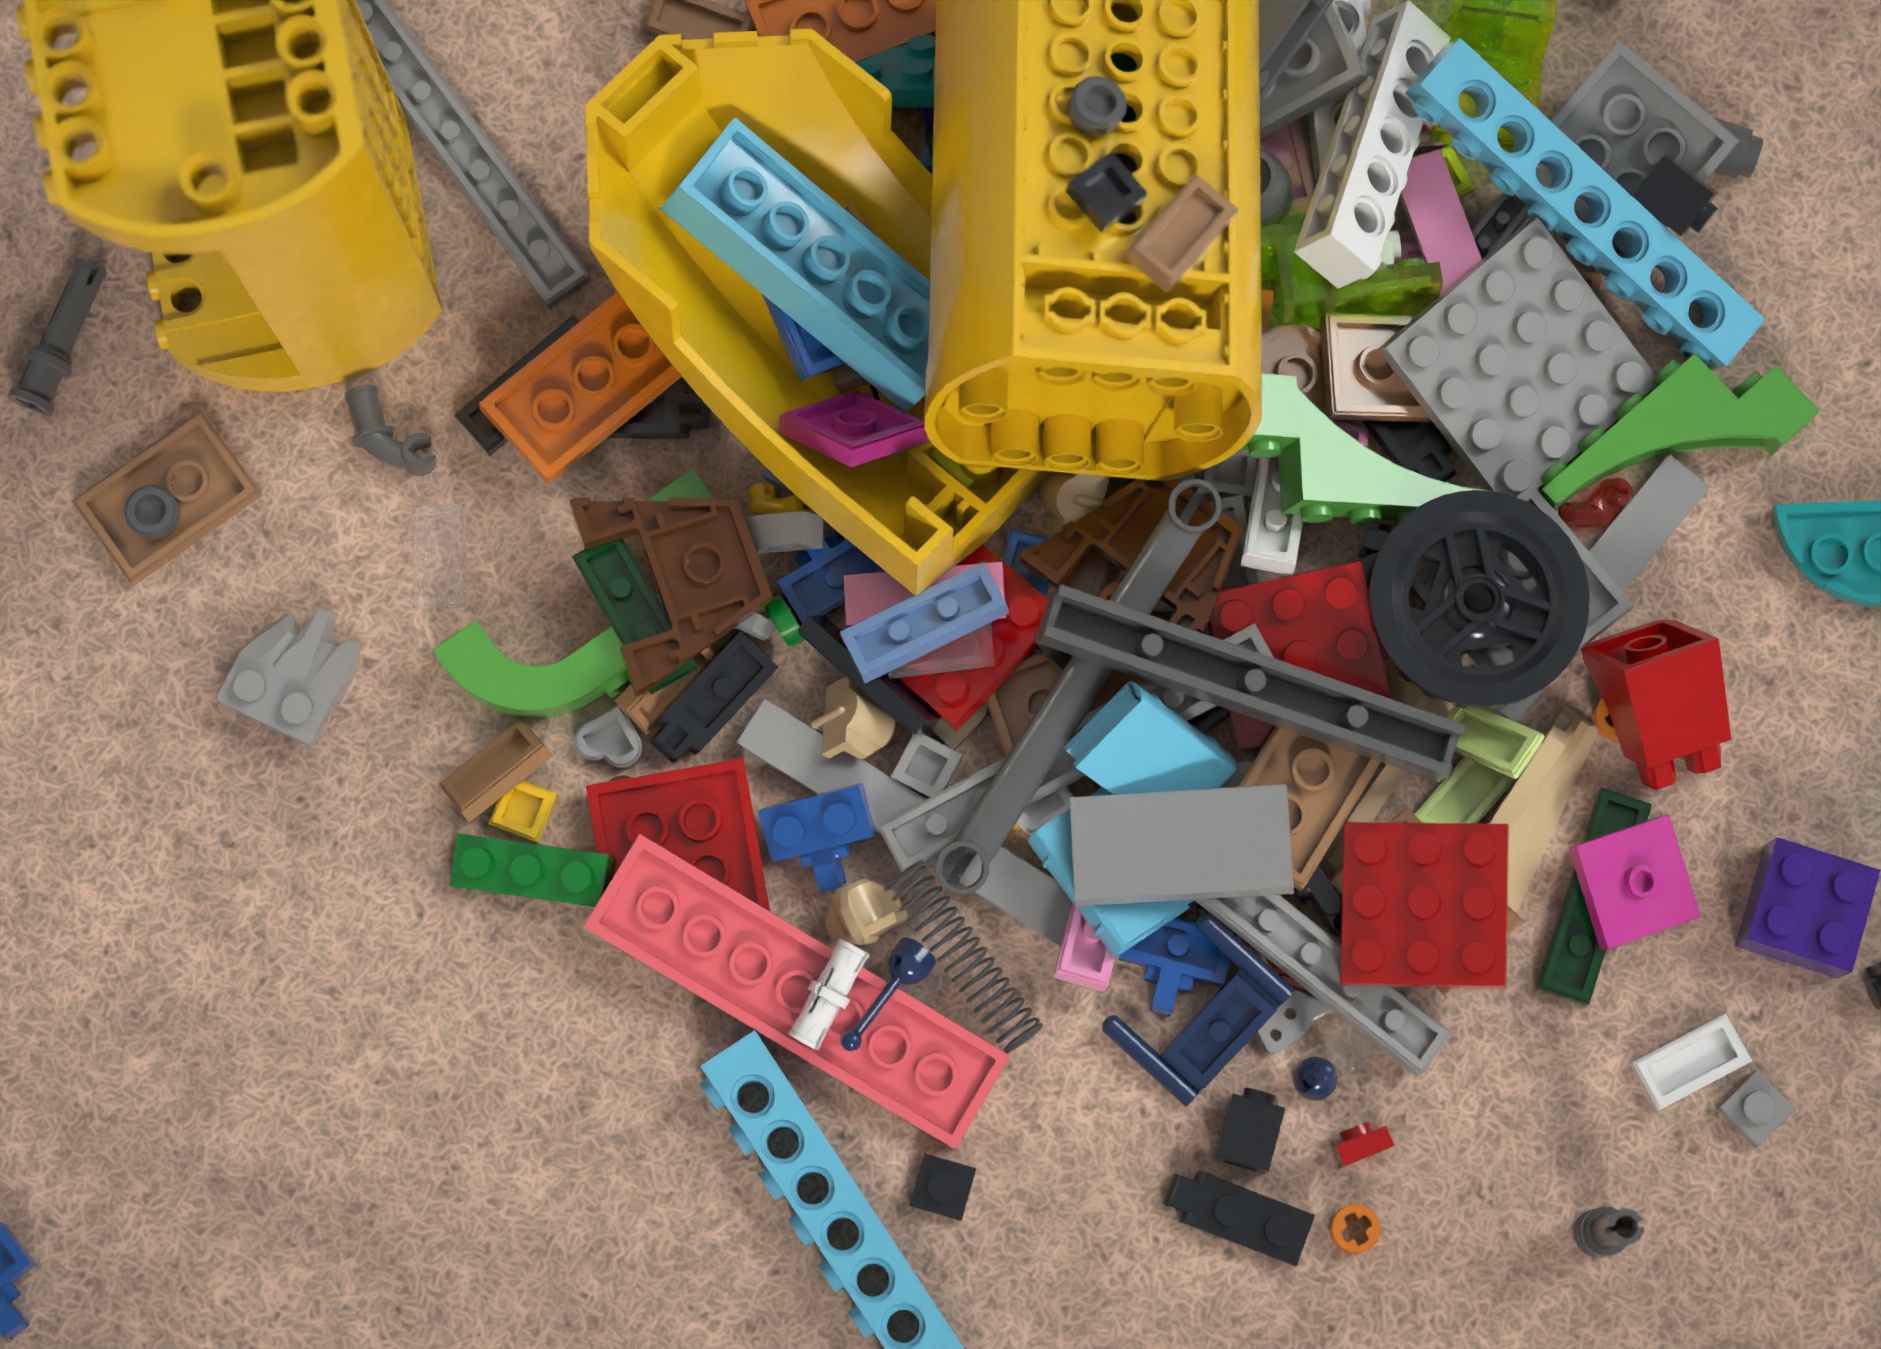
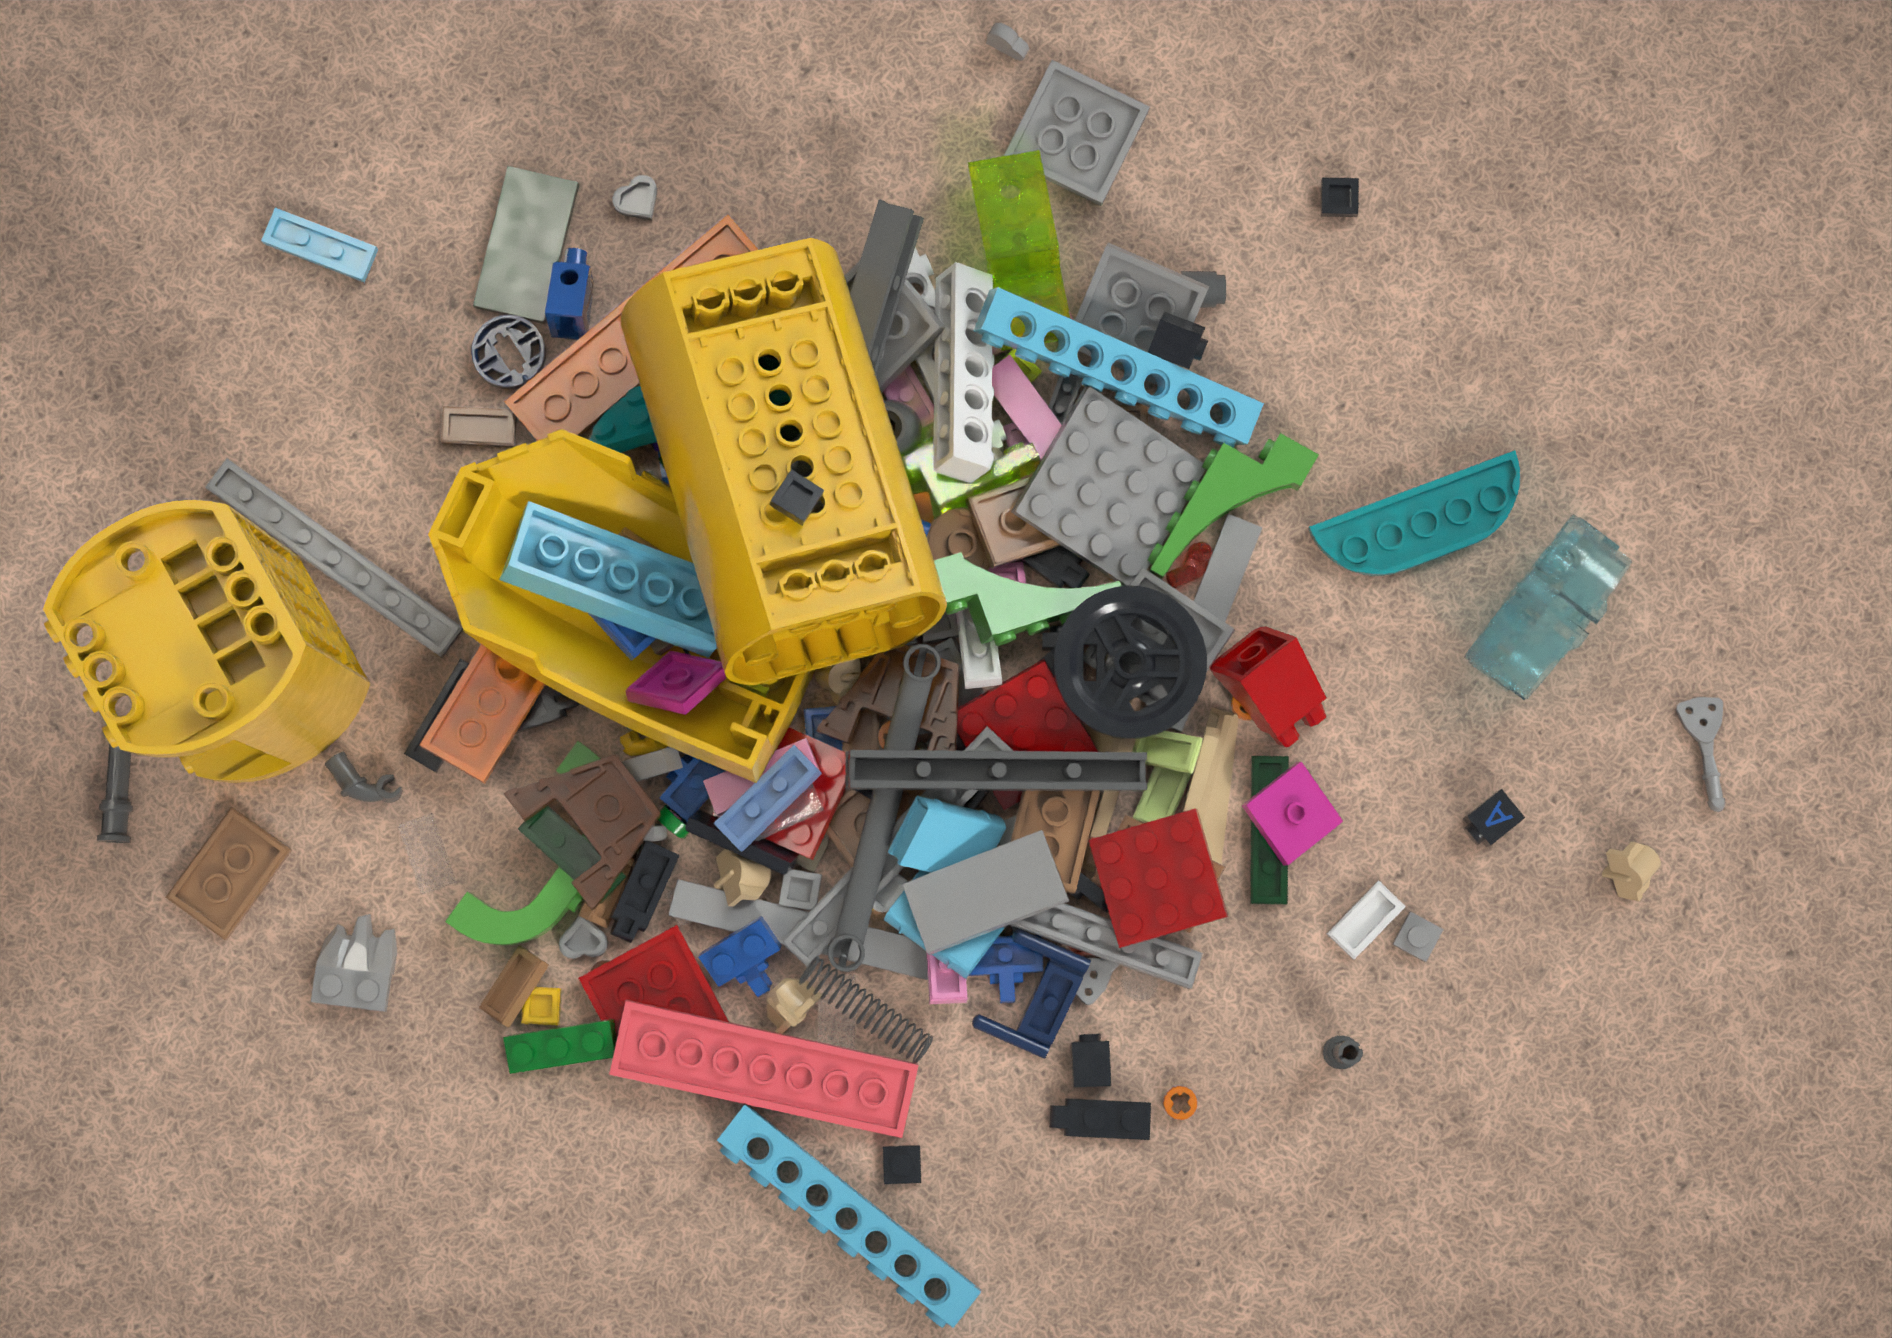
camera: 15 degrees left, 5 degrees up
(152, 512) = (223, 888): dark grey tile -> none
(828, 994) = (785, 1065): white pin -> none
(907, 964) = (831, 1028): dark blue hinge -> none
(1096, 106) = (771, 438): dark grey tile -> none
(1181, 233) = (854, 506): medium nougat tile -> none
(1319, 1076) = (1125, 1013): dark blue hinge -> none
(1361, 1143) = (1166, 1045): red plate -> none
(1807, 908) = (1411, 793): dark purple brick -> none

